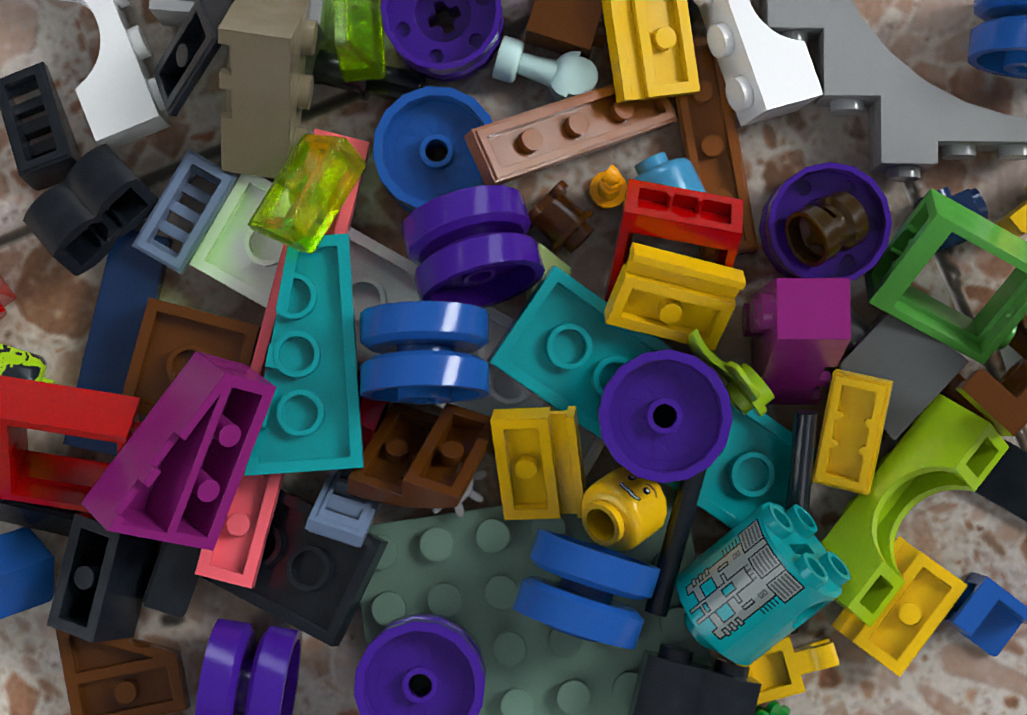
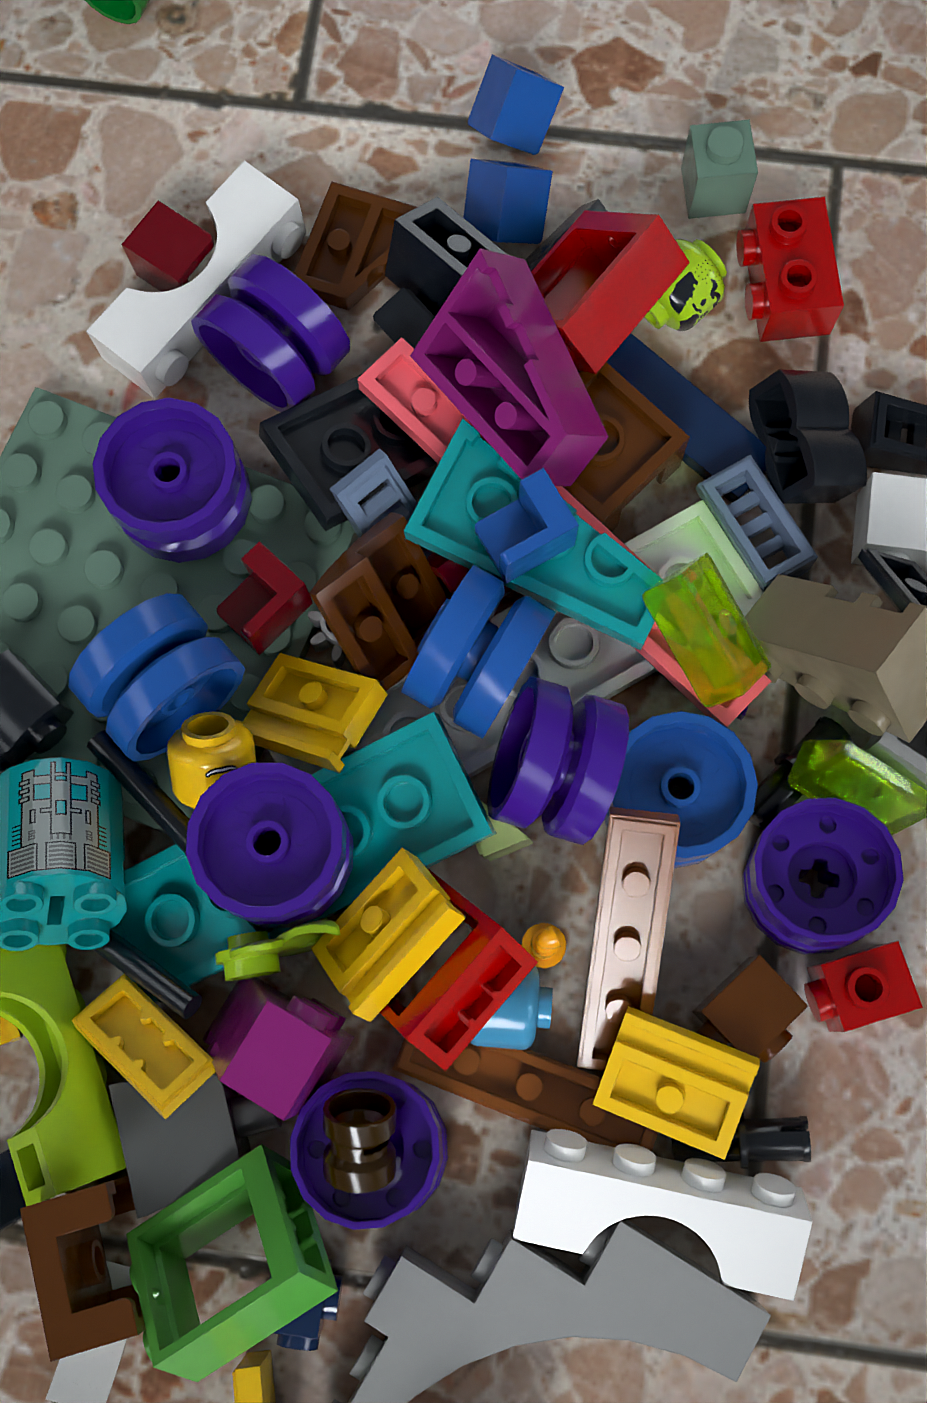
camera: 125 degrees right, 10 degrees down
(311, 369) = (528, 528): none -> blue panel
(473, 556) = (265, 600): none -> dark red panel
(561, 219) = (541, 880): reddish brown brick -> none
(564, 77) = (687, 974): light aqua leg -> none

